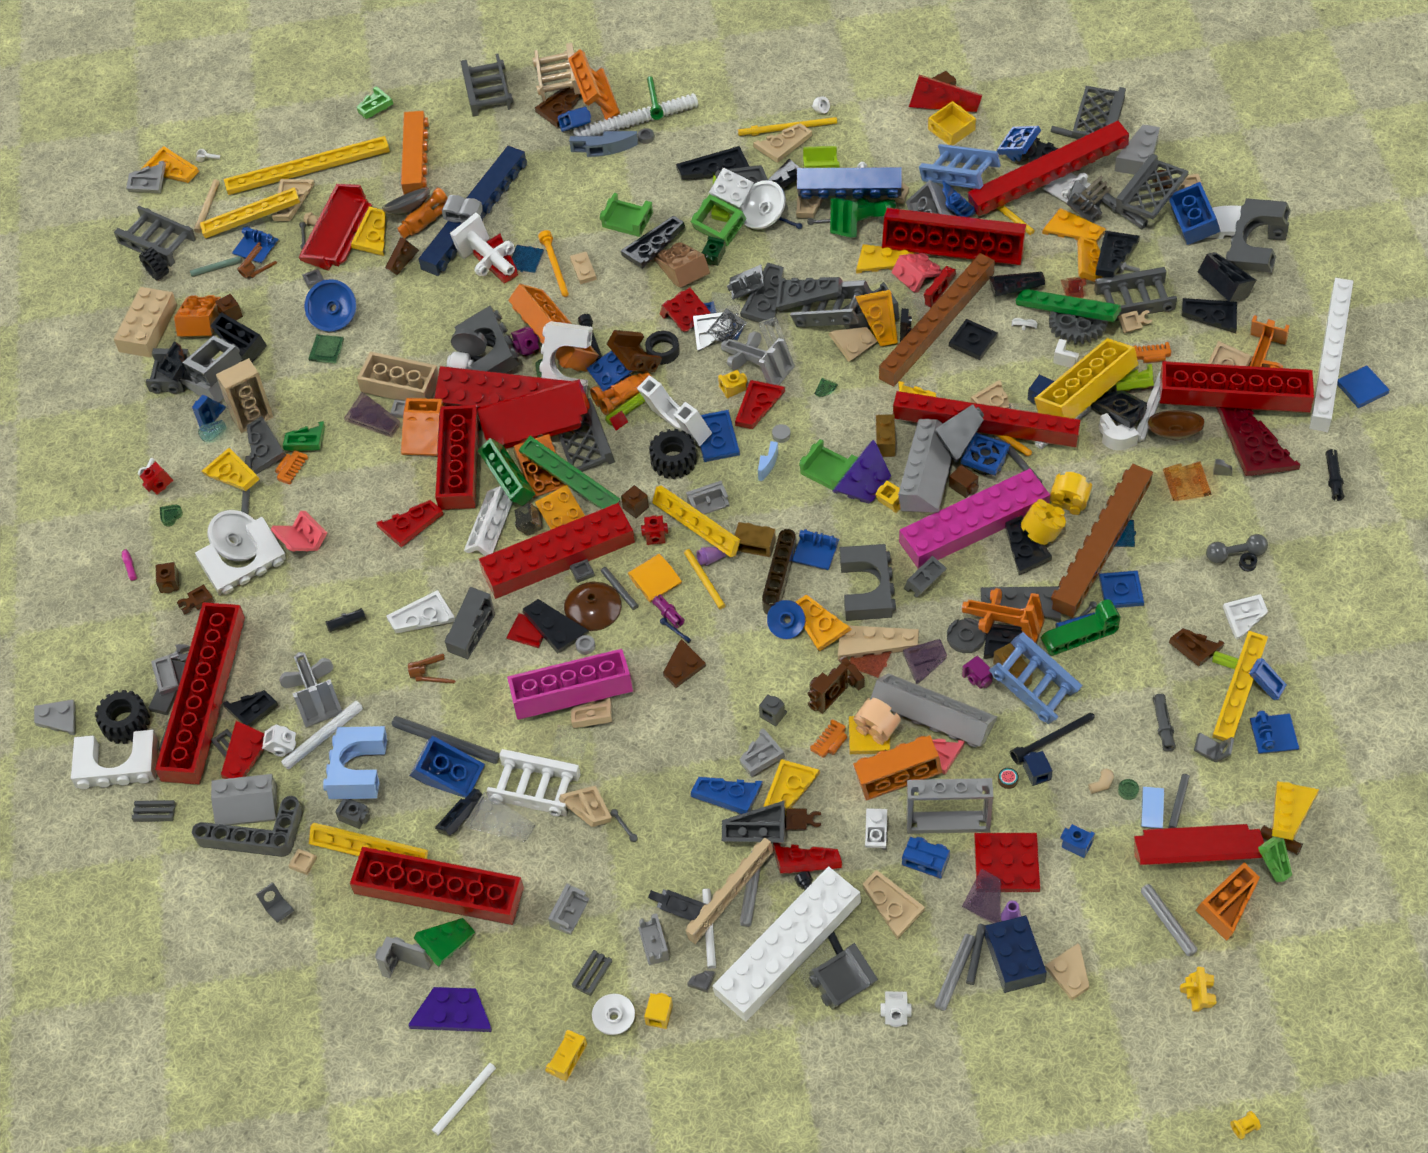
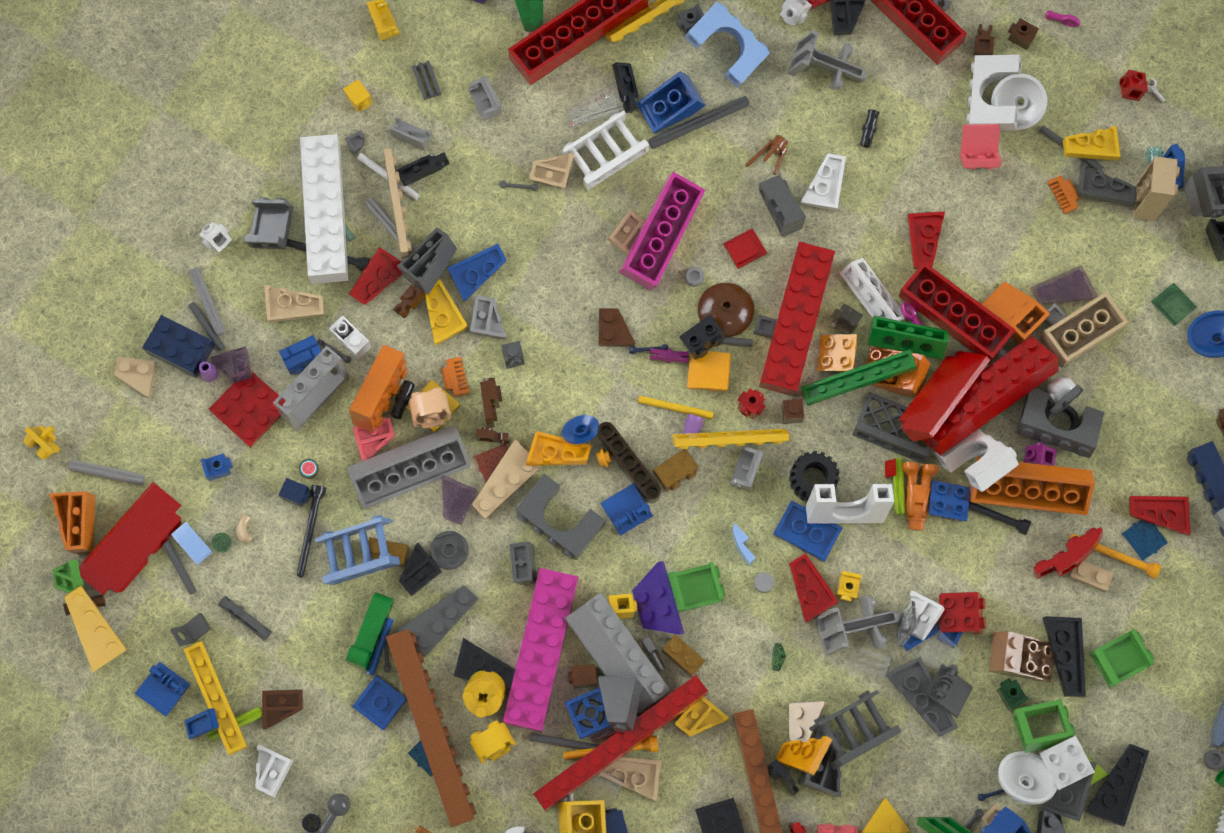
camera: 125 degrees right, 20 degrees up
(169, 514) = (1090, 77): clear green tile -> none
(304, 438) = (1083, 222): green wing -> none
(321, 735) = (779, 46): white axle -> none
(473, 236) = (1199, 500): white piece -> none
(483, 489) = (910, 313): none -> dark pink piece
(553, 625) = (727, 264): black wing -> none
(574, 277) = (1076, 552): none -> red slope
(613, 1005) = (381, 59): white dish -> none
(628, 350) = (947, 528): reddish brown panel -> none
(633, 592) = (702, 337): none -> black brick
(663, 336) = (938, 549): black tyre -> none
(791, 590) = (604, 458): none -> light orange plate
(802, 292) = (890, 719): dark grey wing -> none
(894, 826) = (347, 359): none -> dark grey hinge
(901, 455) = (650, 648): none -> flat silver bar
(977, 672) = (407, 524): magenta brick -> none
(1029, 619) = (409, 596): orange piece -> none

